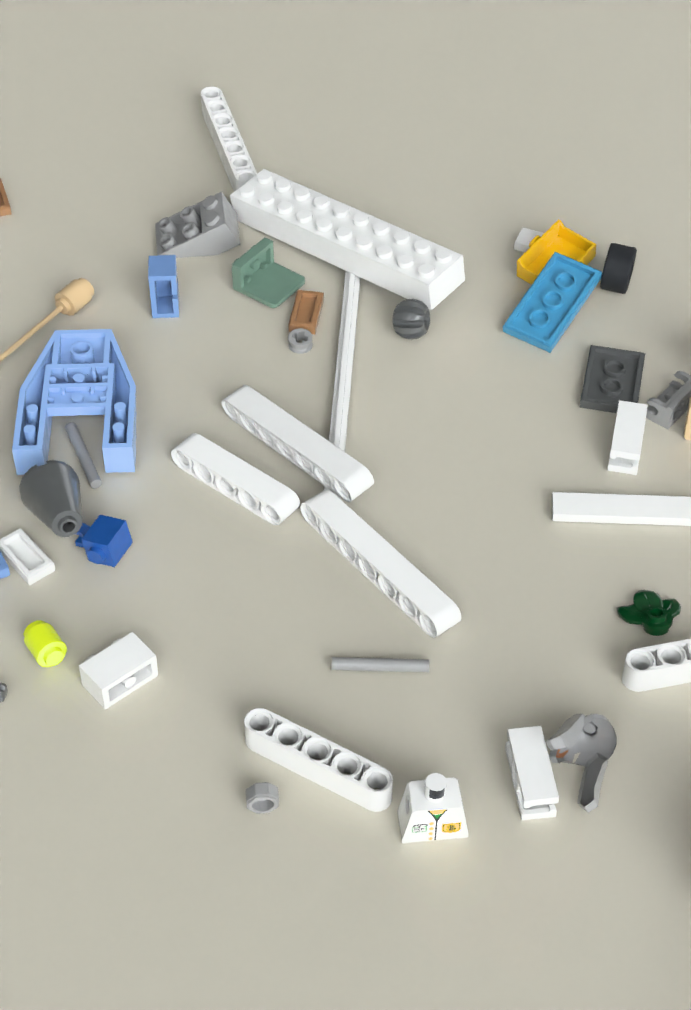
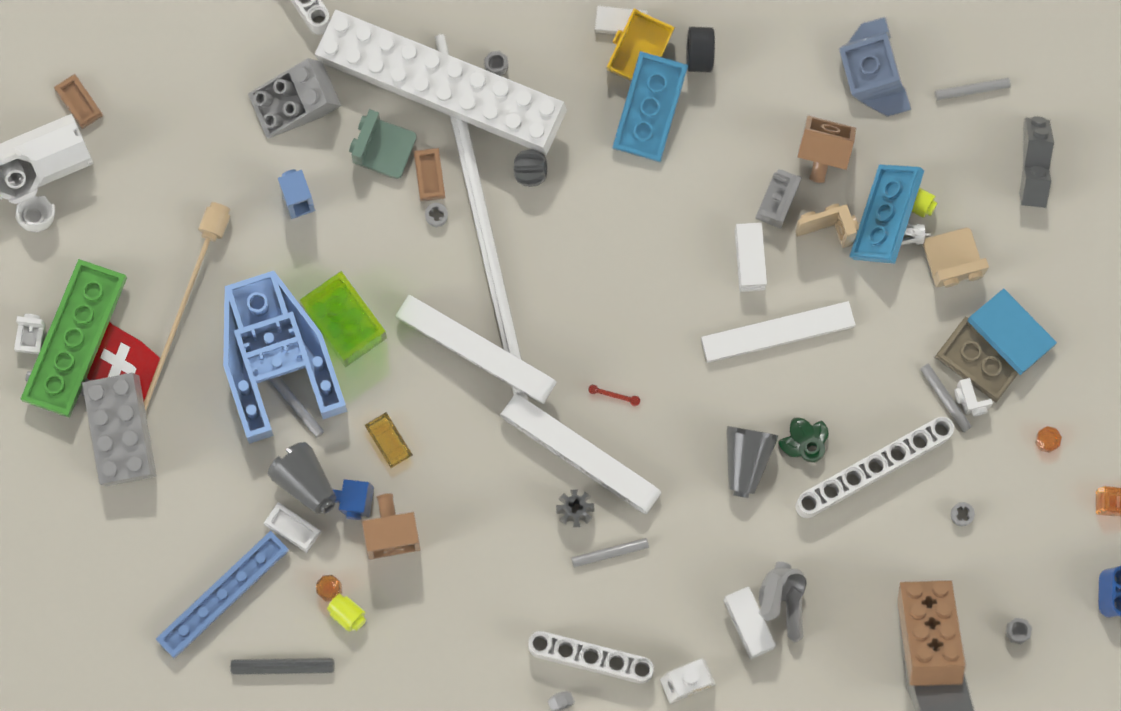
camera: 20 degrees left, 30 degrees up
(34, 612) = (328, 587): none -> clear orange tile
(118, 670) = (413, 620): white brick -> none
(128, 574) = (391, 532): none -> medium nougat brick
(166, 389) = (343, 319): none -> clear neon green brick
(168, 504) = (388, 440): none -> clear yellow tile
(235, 479) = (435, 398): white beam -> none
(353, 606) = (570, 502): none -> dark grey piece
(458, 534) = (634, 400): none -> clear red hinge
(576, 601) = (747, 458): none -> dark grey cone
(611, 377) = (722, 184): dark grey tile -> none

